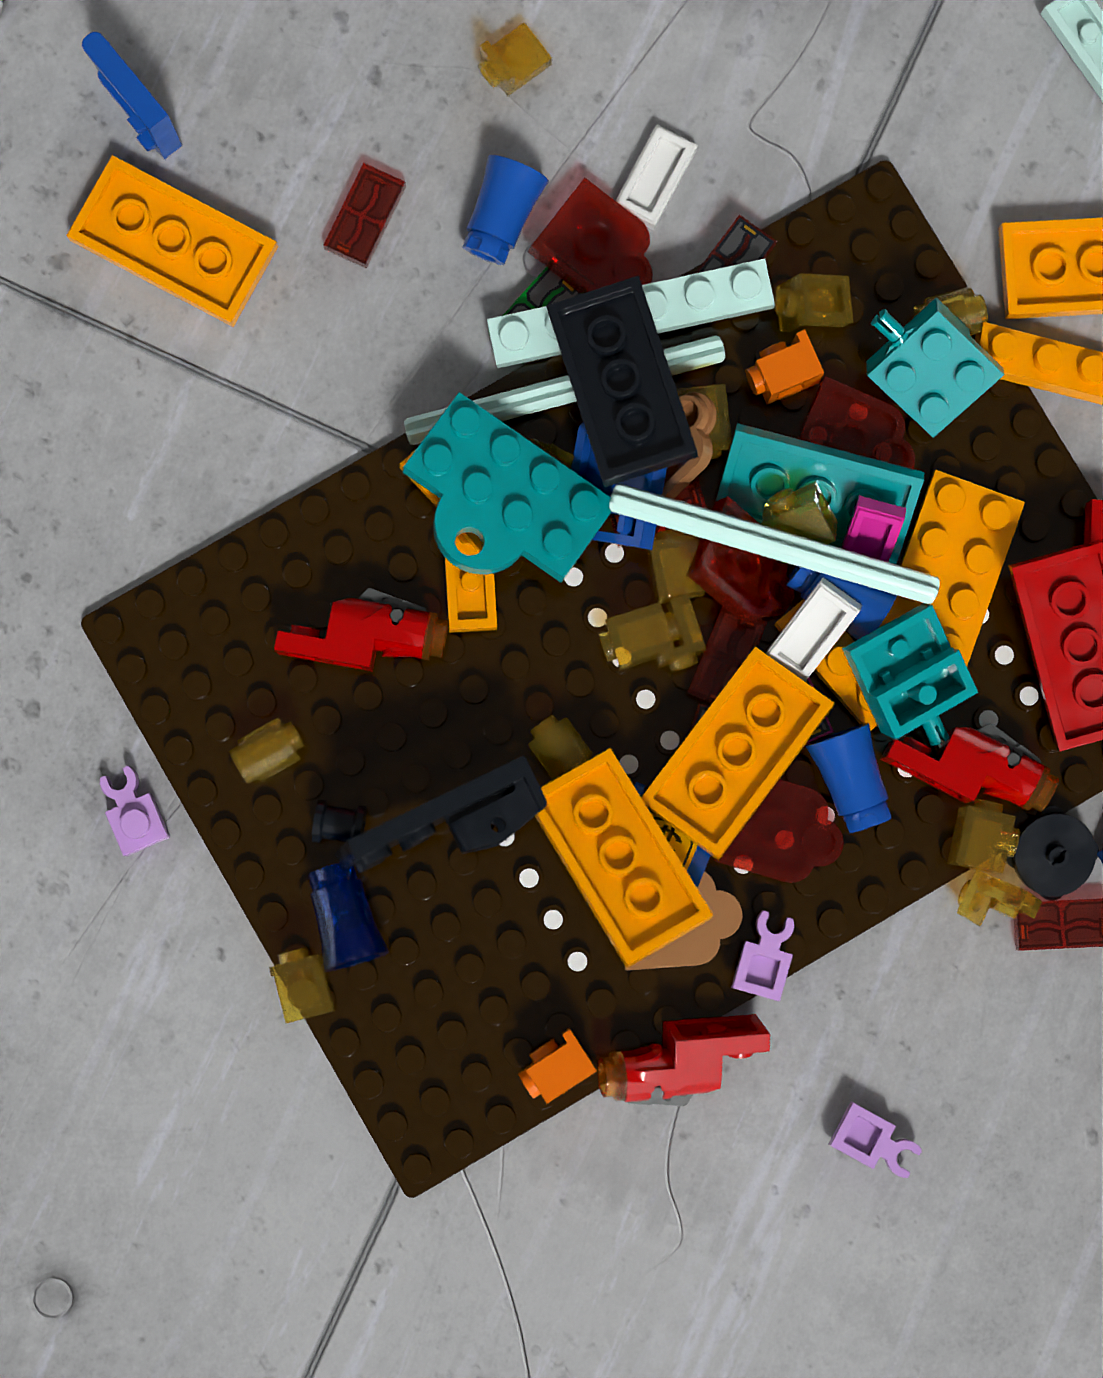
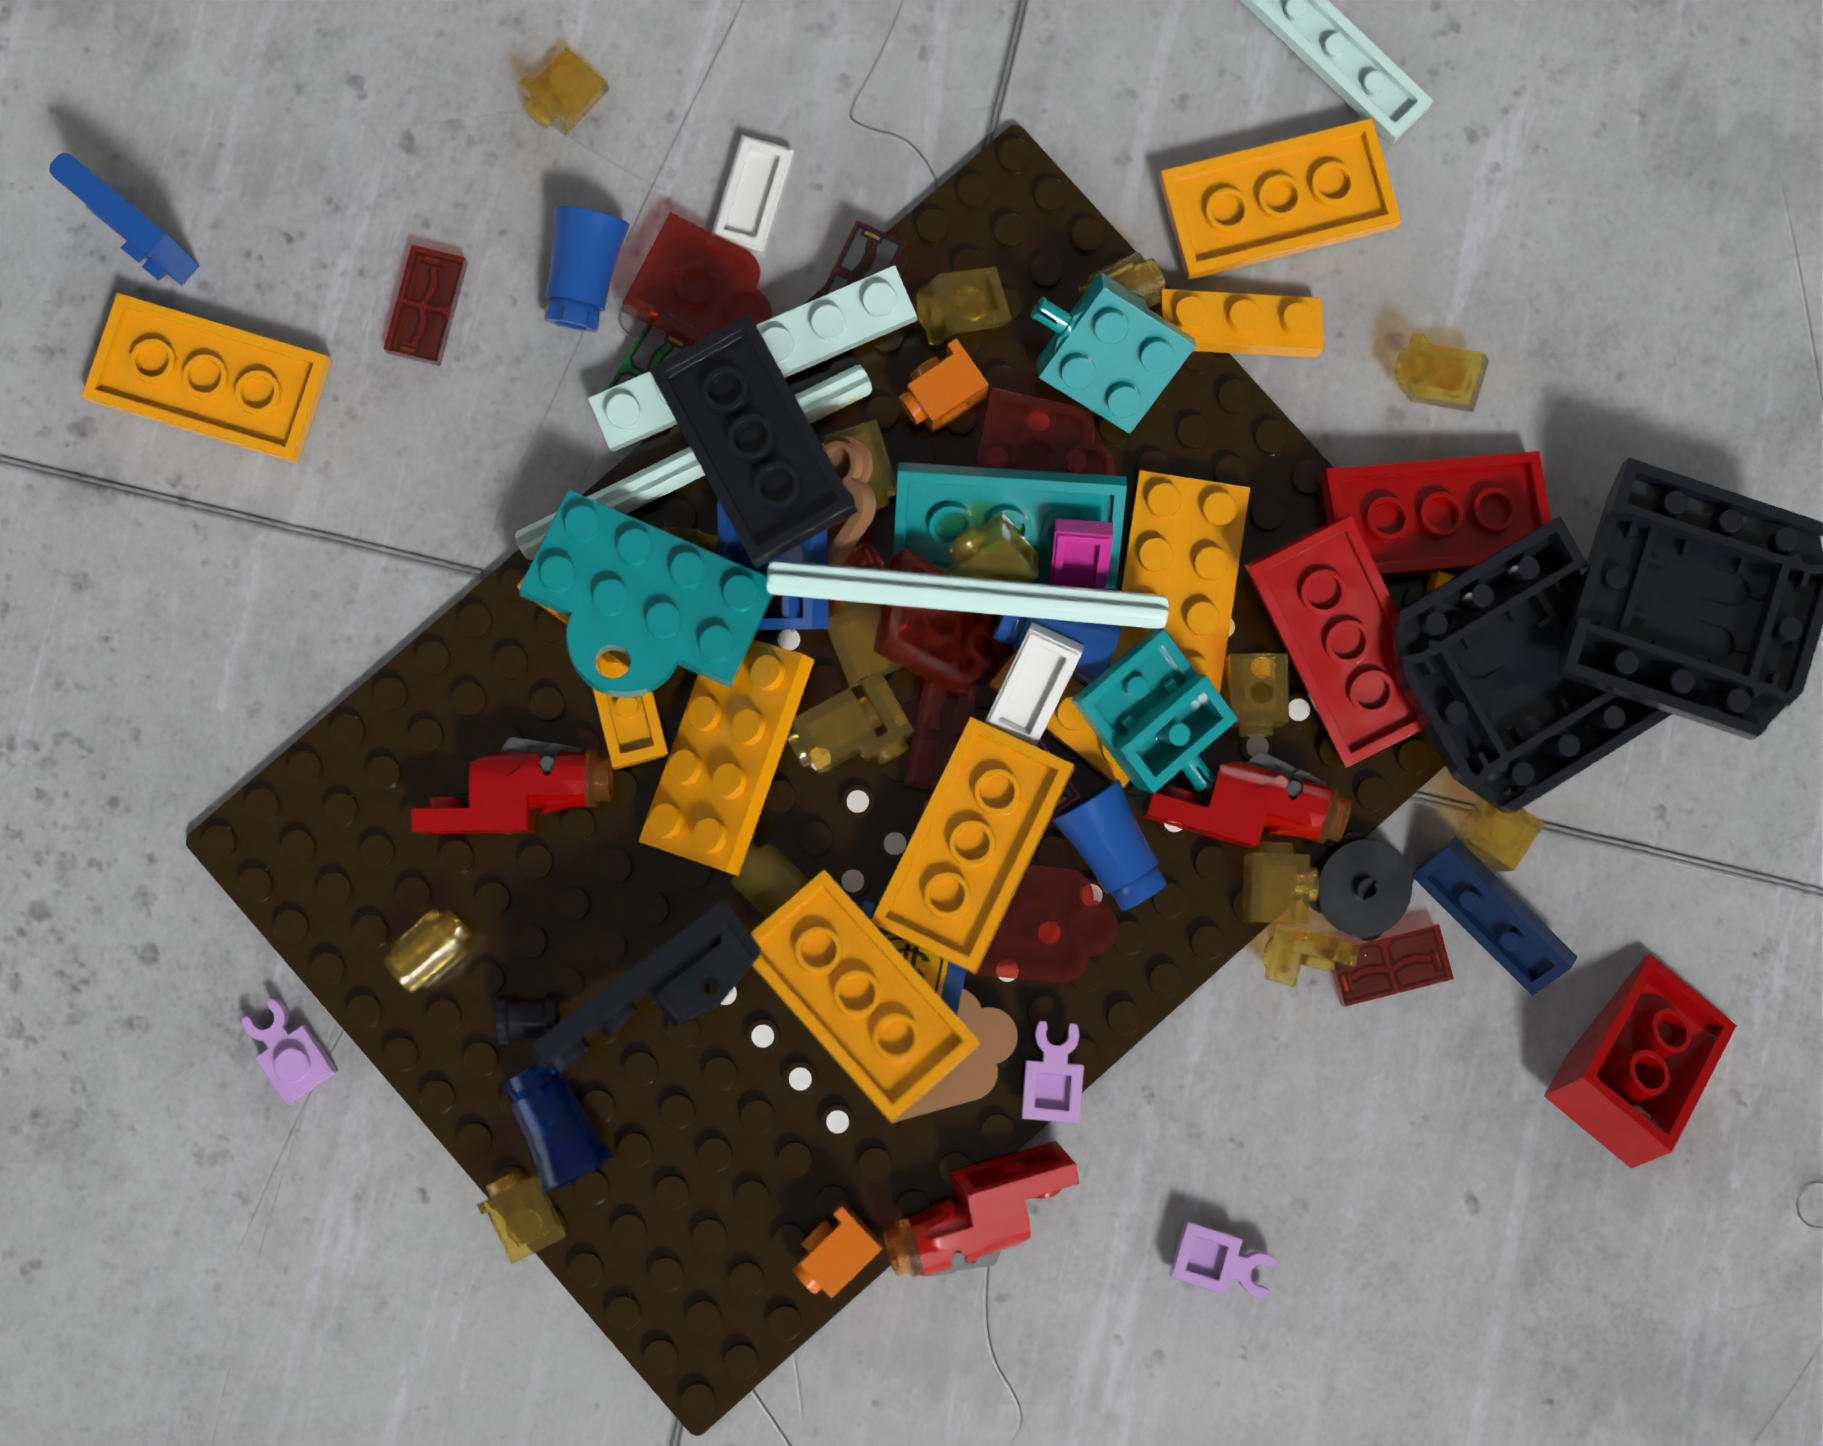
camera: 10 degrees left, 0 degrees up
(545, 641) = (726, 759): none -> light orange plate
(998, 673) = (1257, 692): none -> clear yellow brick

